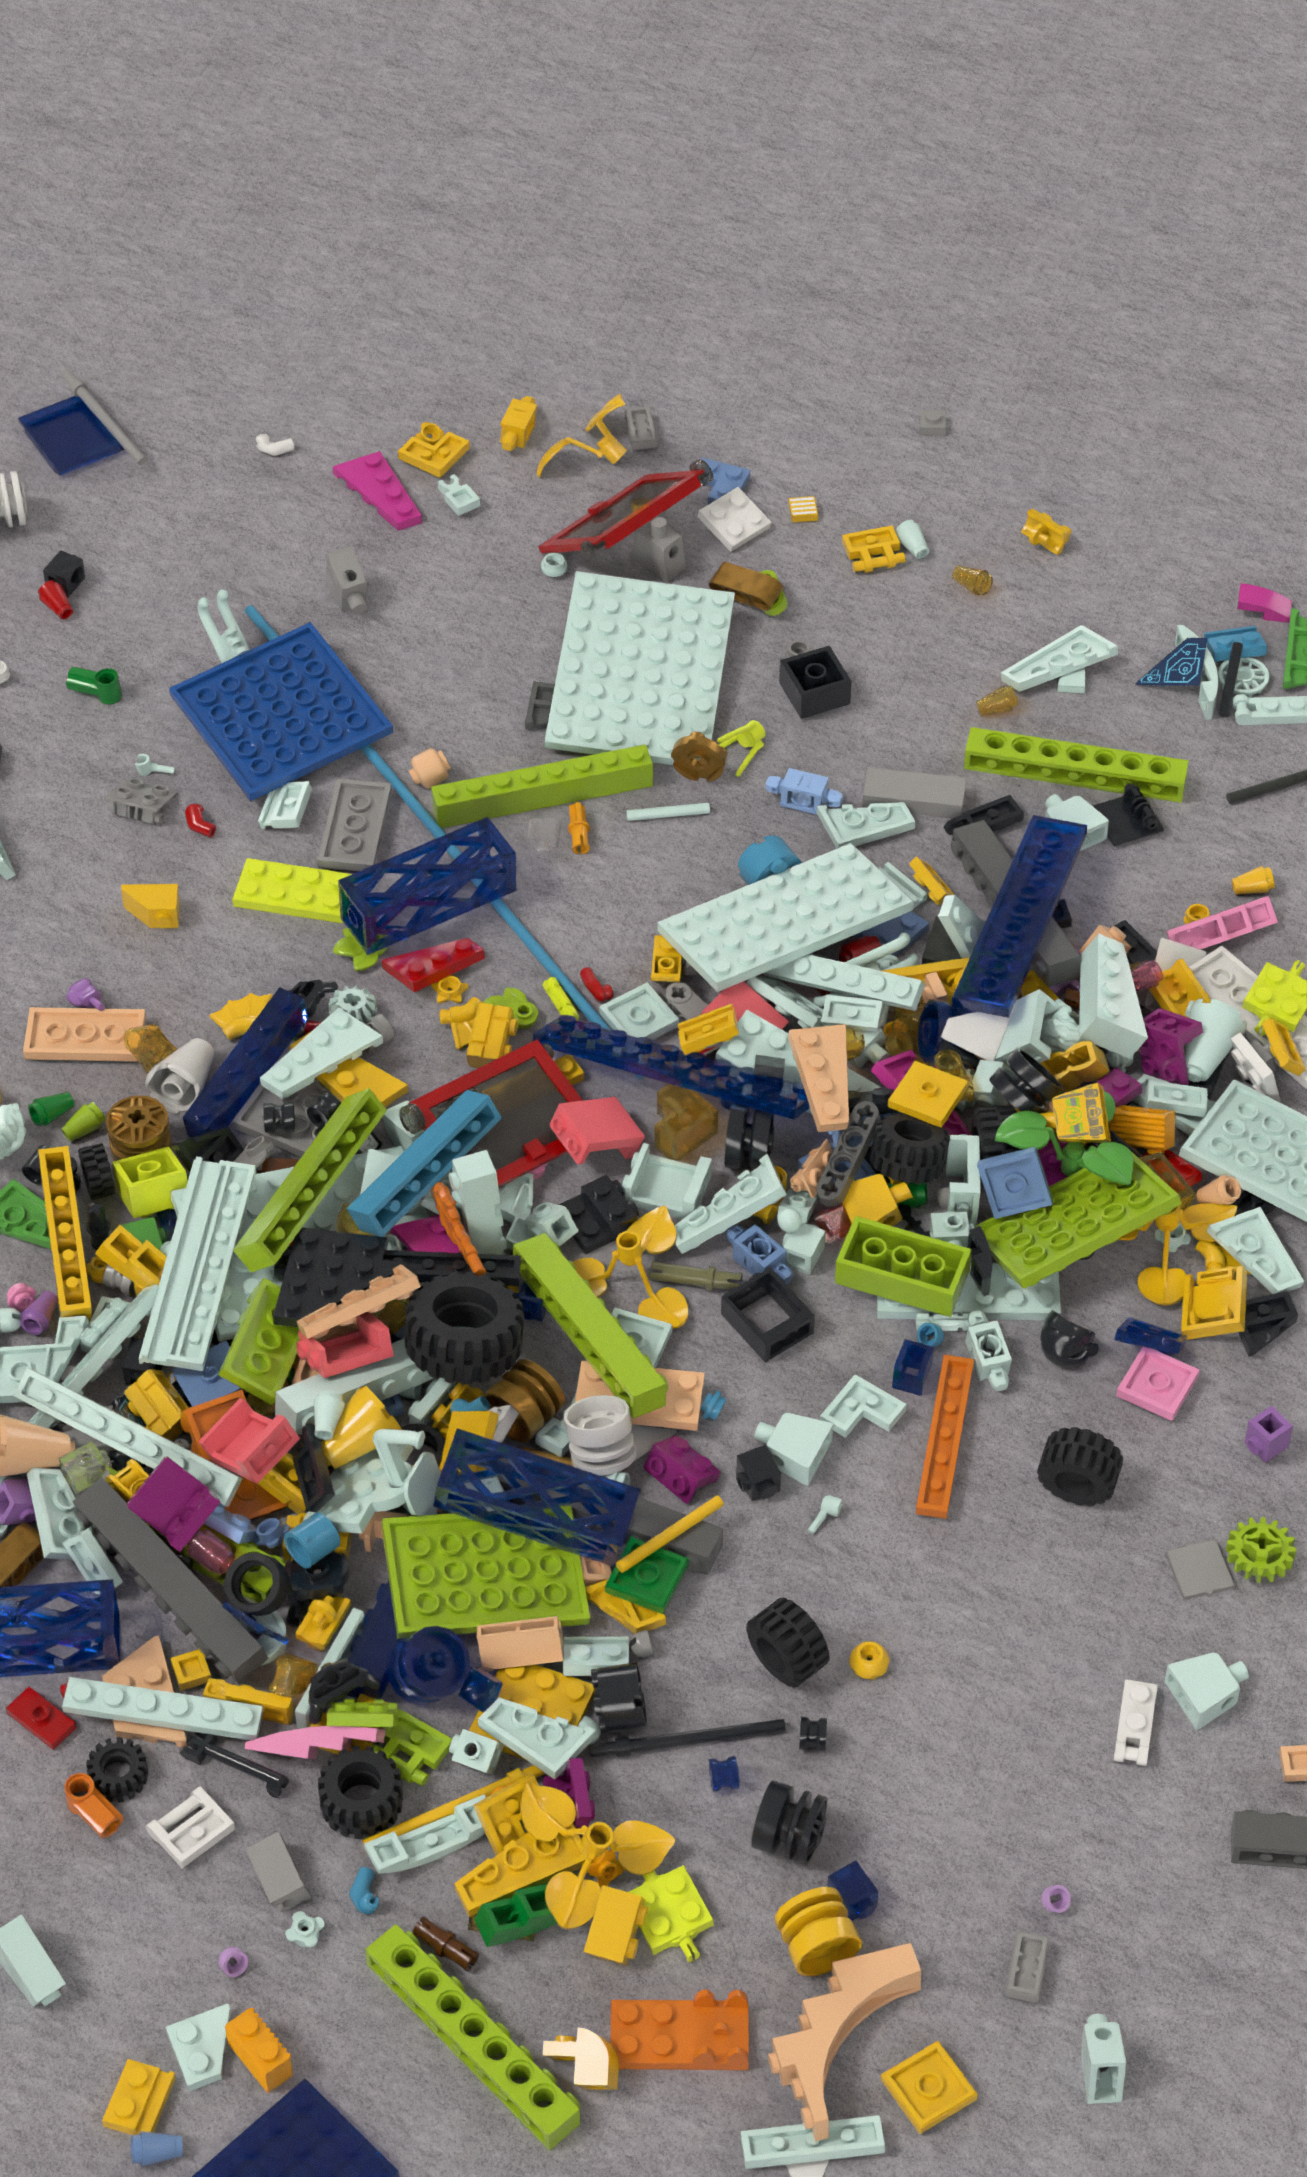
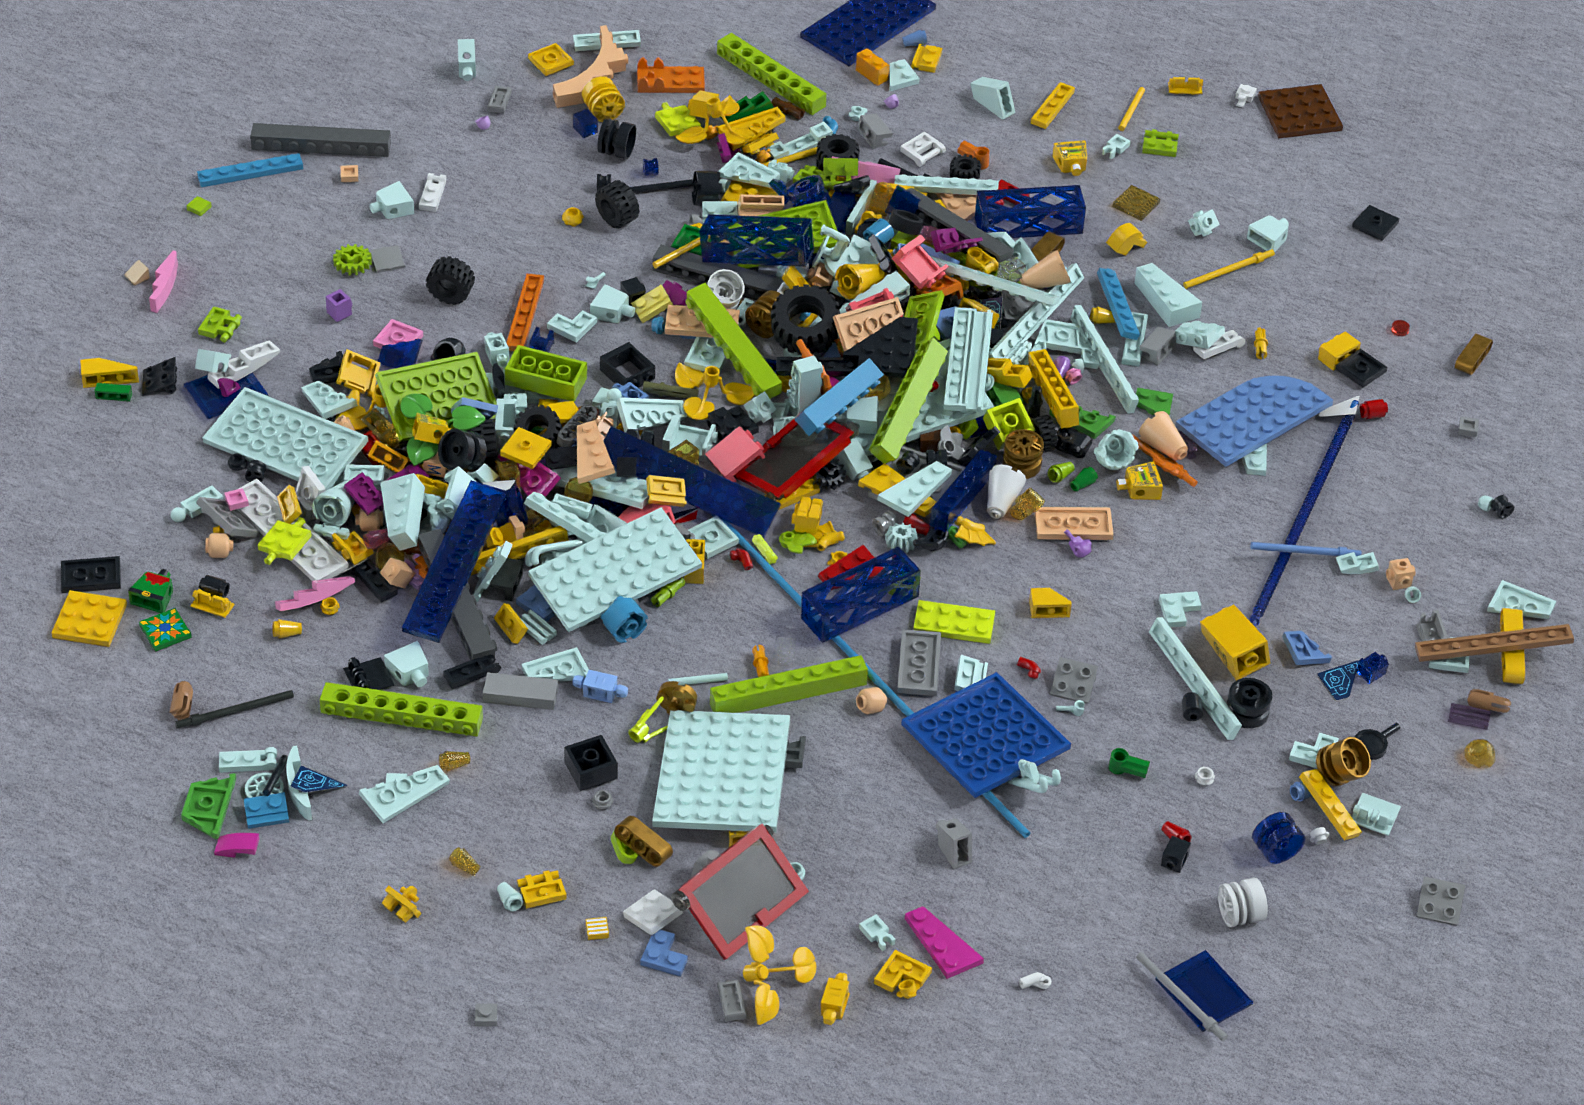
camera: 175 degrees right, 5 degrees down
(327, 1412) = (877, 270): light aqua cone -> none
(593, 2056) = (715, 63): brick -> none
(721, 1441) = (651, 303): none -> light yellow plate

